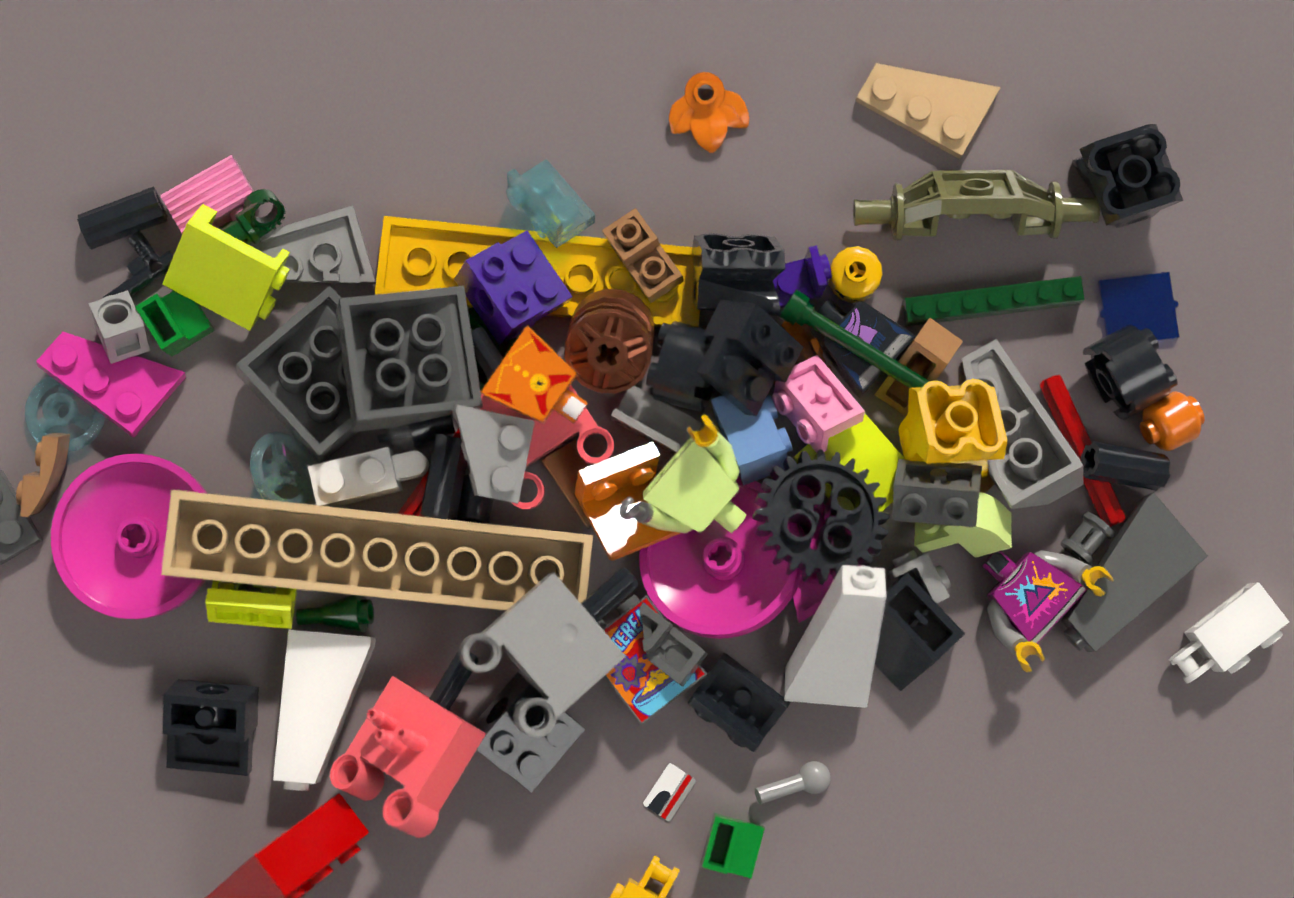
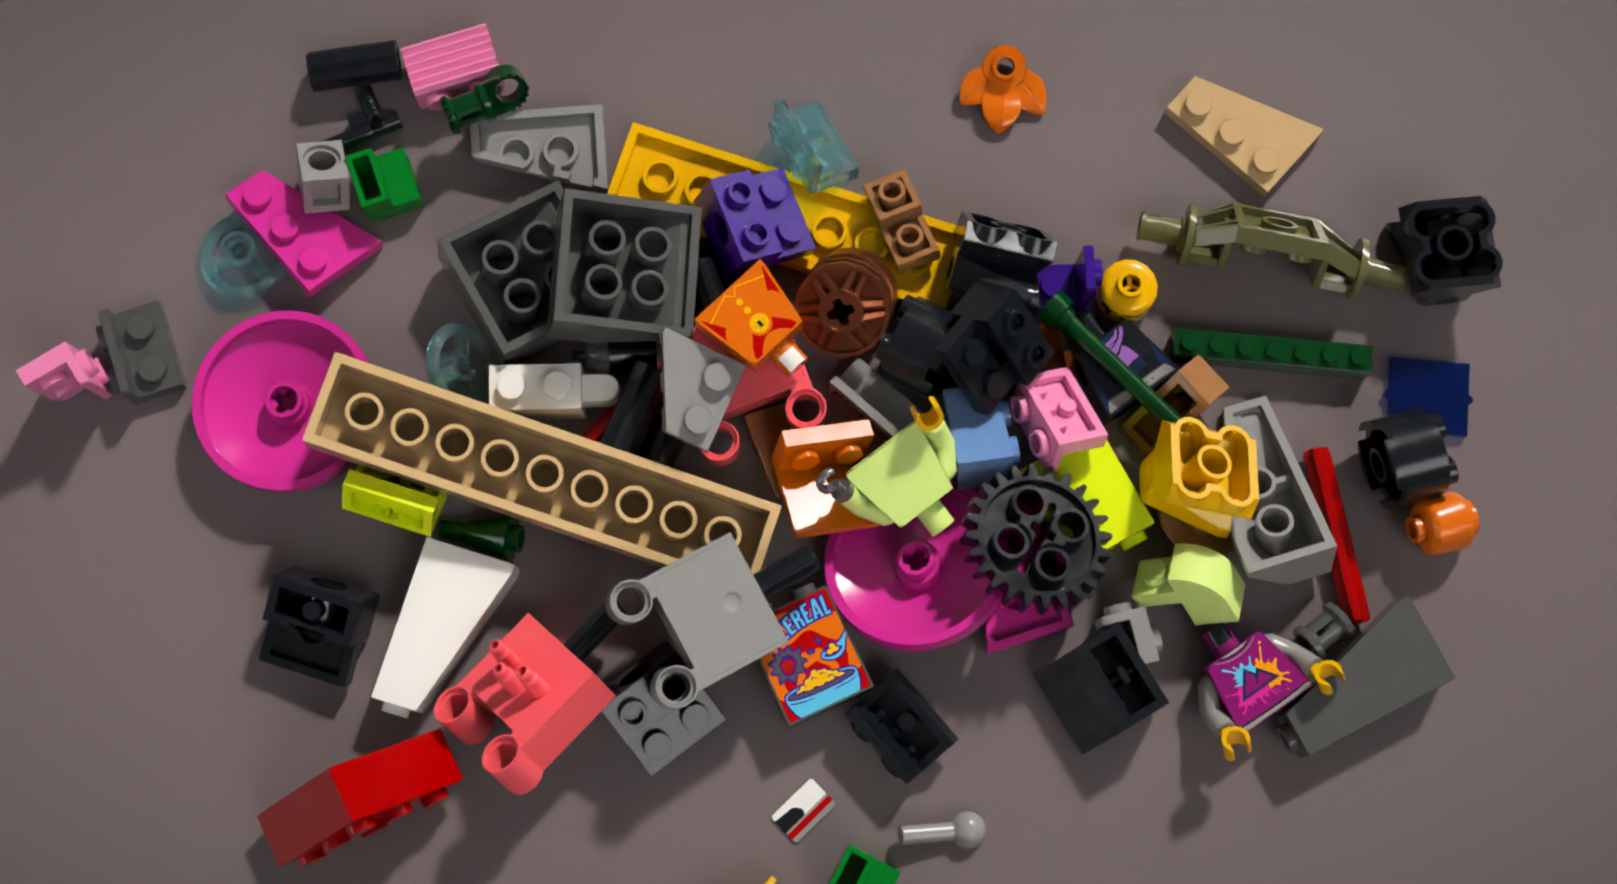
camera: 10 degrees right, 5 degrees down
(38, 487) = (195, 329): medium nougat slope -> none
(225, 272) = (449, 141): neon yellow panel -> none
(669, 647) = (838, 646): dark grey slope -> none
(841, 642) = (1028, 683): white slope -> none
(936, 493) = (1169, 541): dark grey bracket -> none
(1125, 466) = (1382, 560): black axle -> none
(1231, 633) = (1465, 770): white brick -> none

